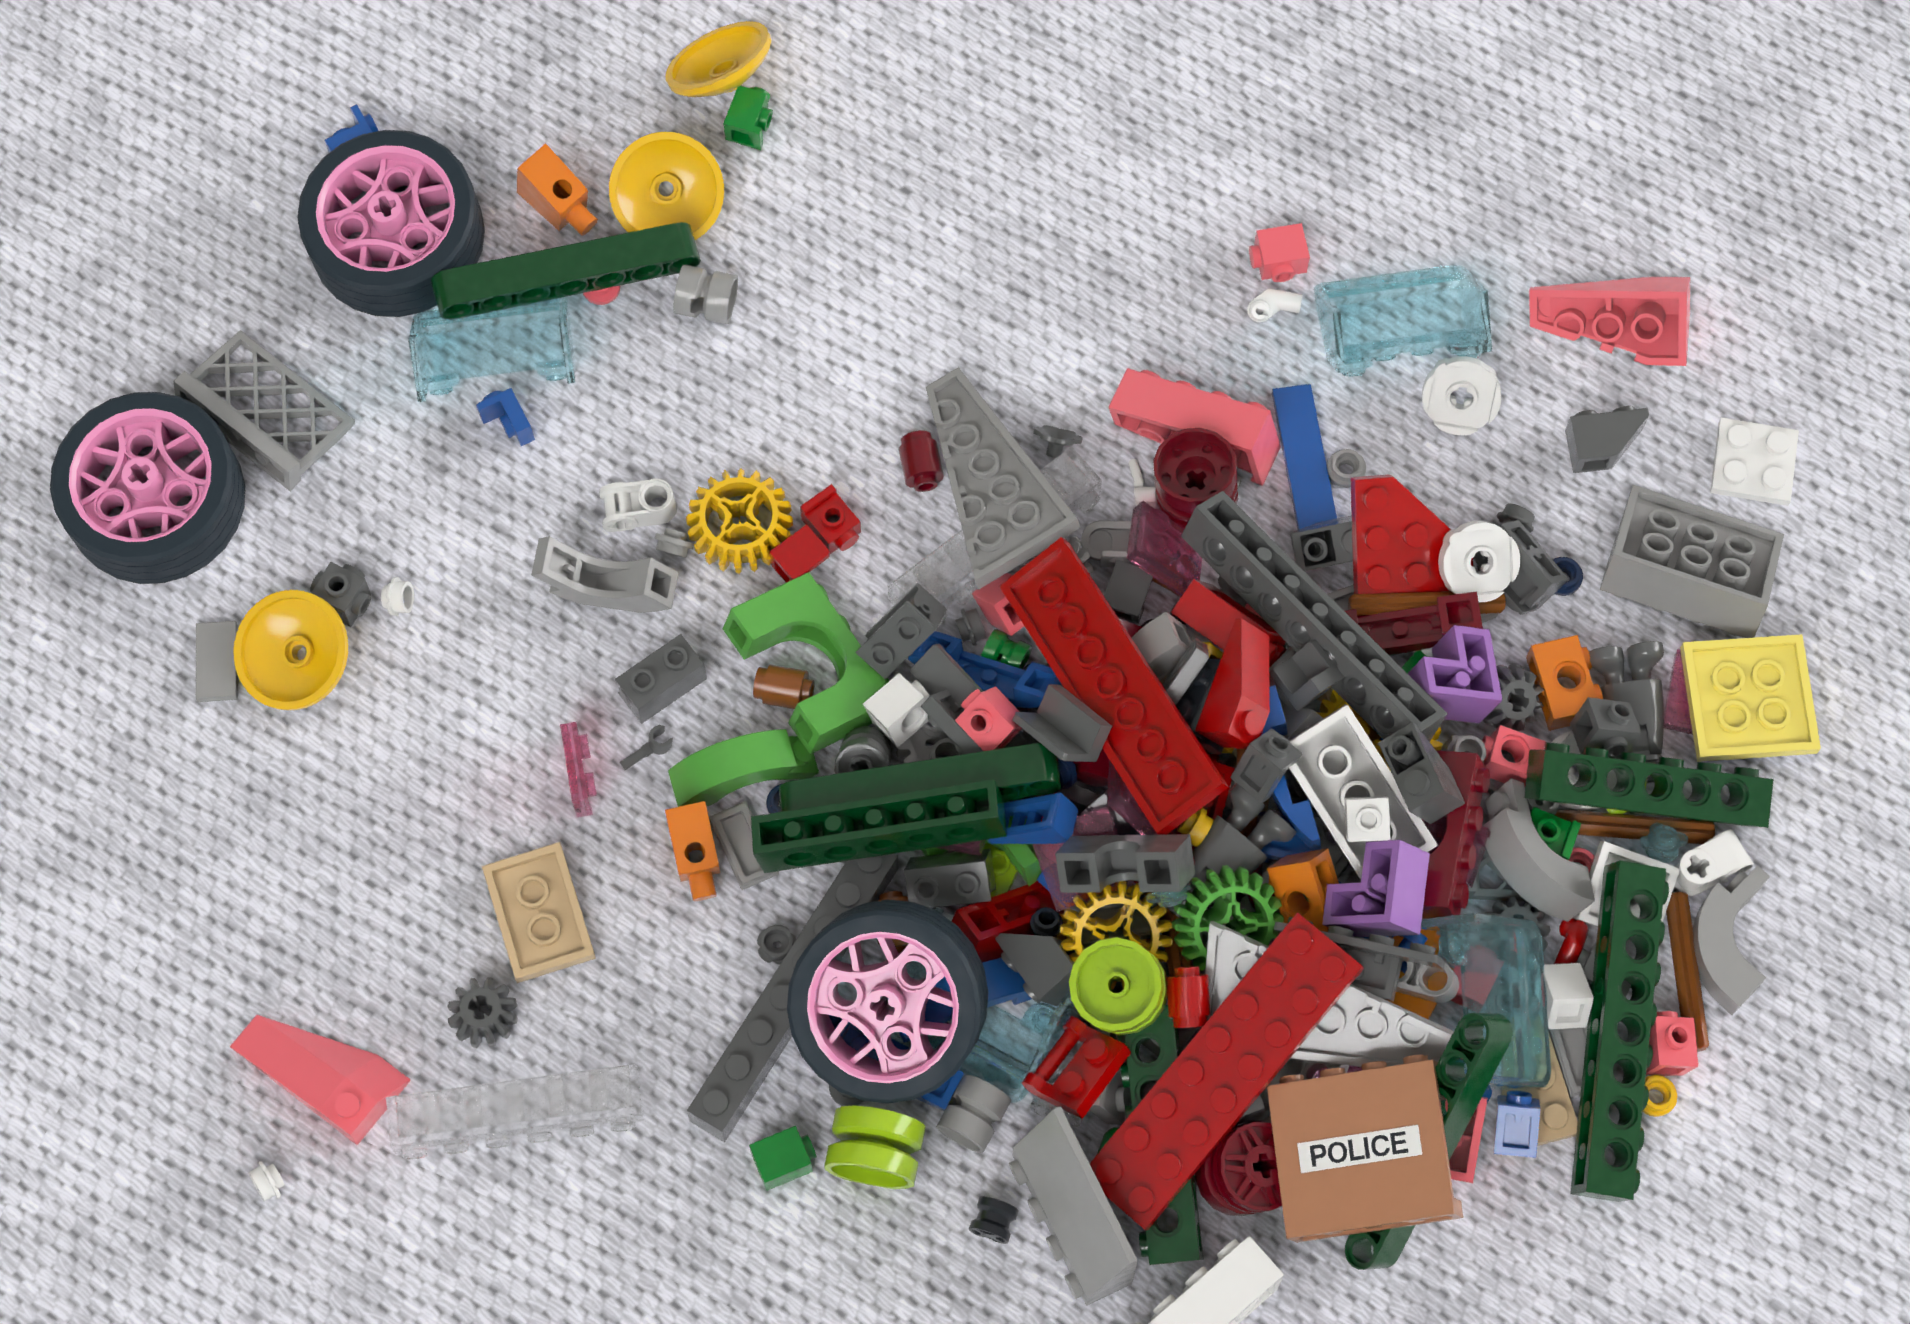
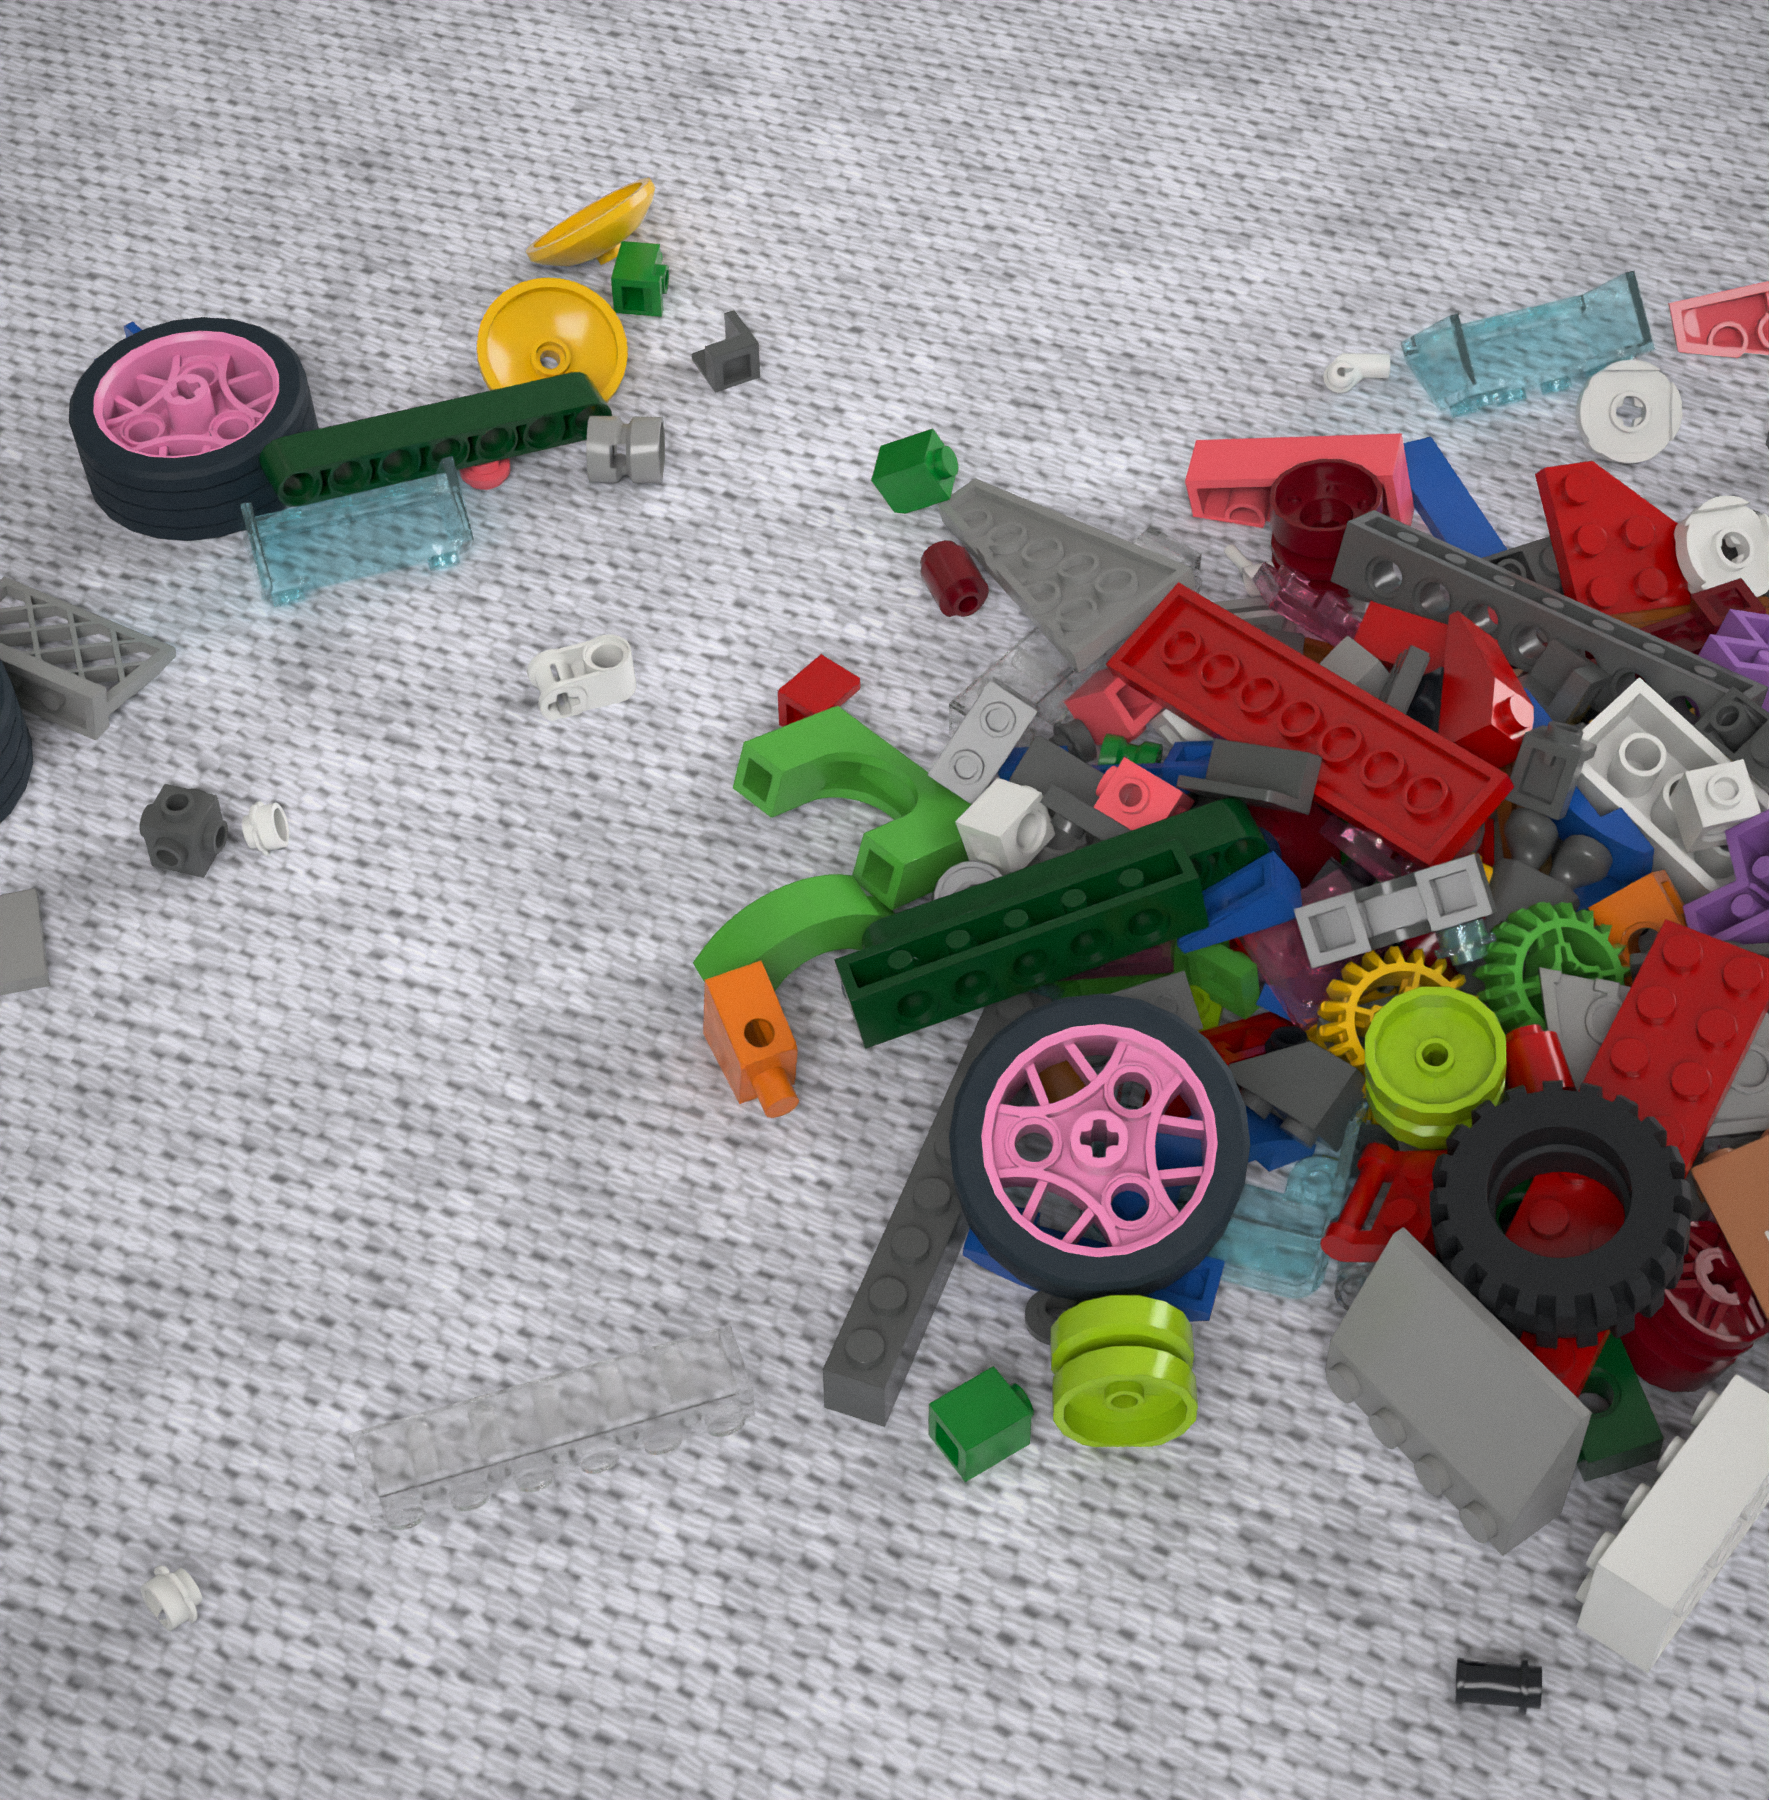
camera: 10 degrees left, 20 degrees down
(269, 647) = (104, 881): yellow dish -> none
(327, 1076) = (253, 1441): coral wedge -> none
(465, 1017) = (478, 1307): dark grey gear -> none
(508, 410) = (387, 602): blue bracket -> none
(538, 912) = (539, 1169): tan plate -> none
(554, 191) = (400, 365): orange torso -> none
(581, 783) = (567, 988): clear pink plate -> none
(591, 581) = (556, 769): light grey arch -> none
(648, 748) = (665, 945): dark grey hand -> none
(661, 678) = (659, 858): dark grey hinge -> none
(673, 542) = (641, 711): light grey plate -> none
(723, 545) = (735, 672): yellow gear -> none
(735, 837) = (827, 1046): light grey tile -> none
(768, 937) = (894, 1140): dark grey plate -> none
(782, 686) = (827, 846): dark orange brick -> none
(800, 208) = (732, 359): none -> dark grey panel
(835, 535) = (854, 650): red brick -> none
(913, 357) = (915, 472): none -> green brick
(975, 1110) = (1255, 1313): light grey wheel -> none
(993, 1219) = (1327, 1452): black wheel -> none
(1056, 439) = (1125, 530): dark grey plant -> none
(1104, 1106) = (1573, 1135): none -> black tyre
(1280, 252) = (1347, 315): coral brick -> none
(1348, 457) = (1509, 511): light grey plate -> none

